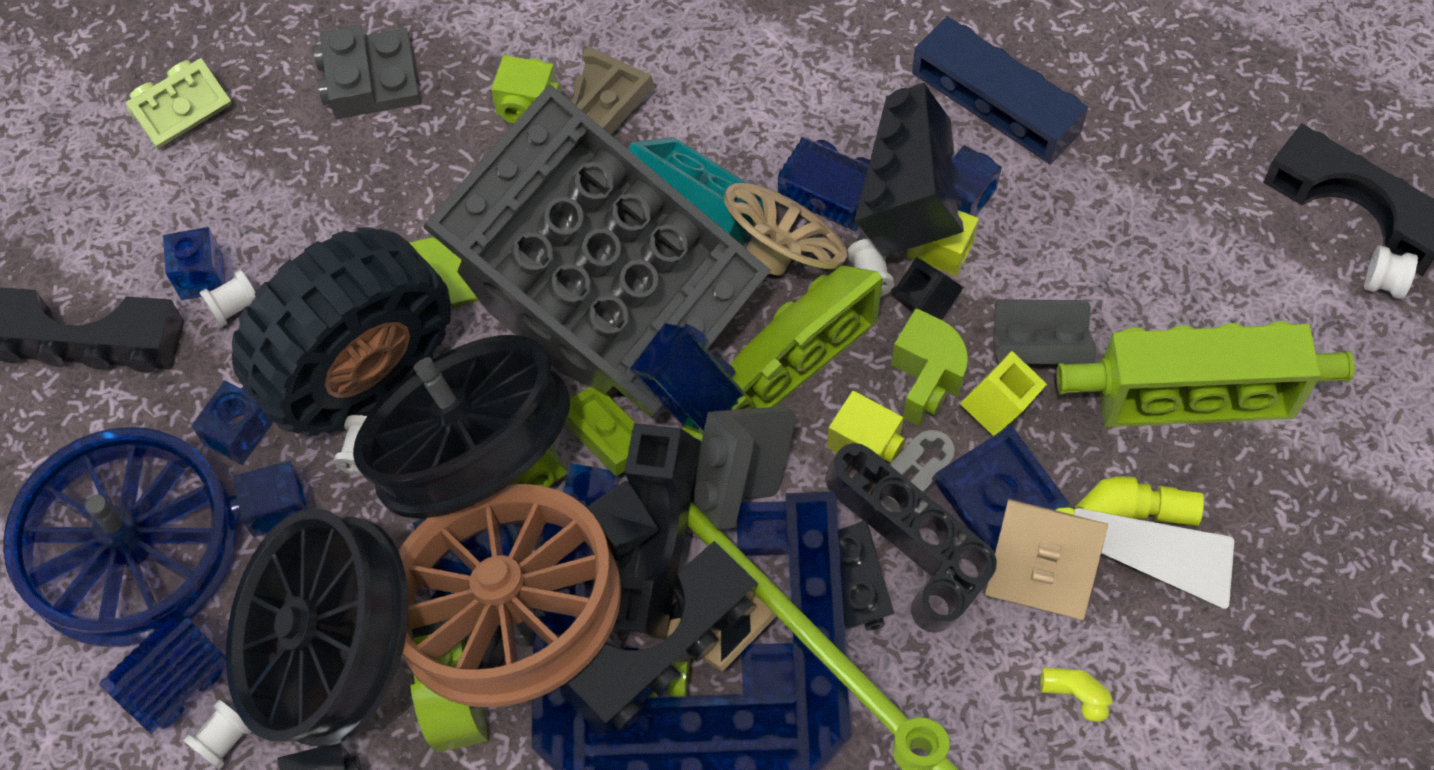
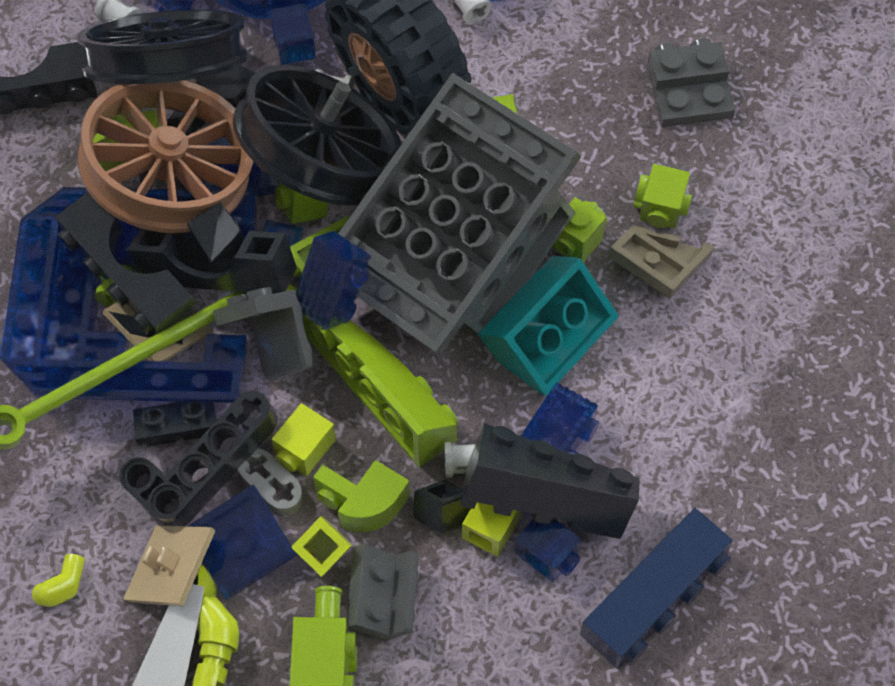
camera: 90 degrees right, 0 degrees up
(775, 243) = (493, 378): tan wheel -> none

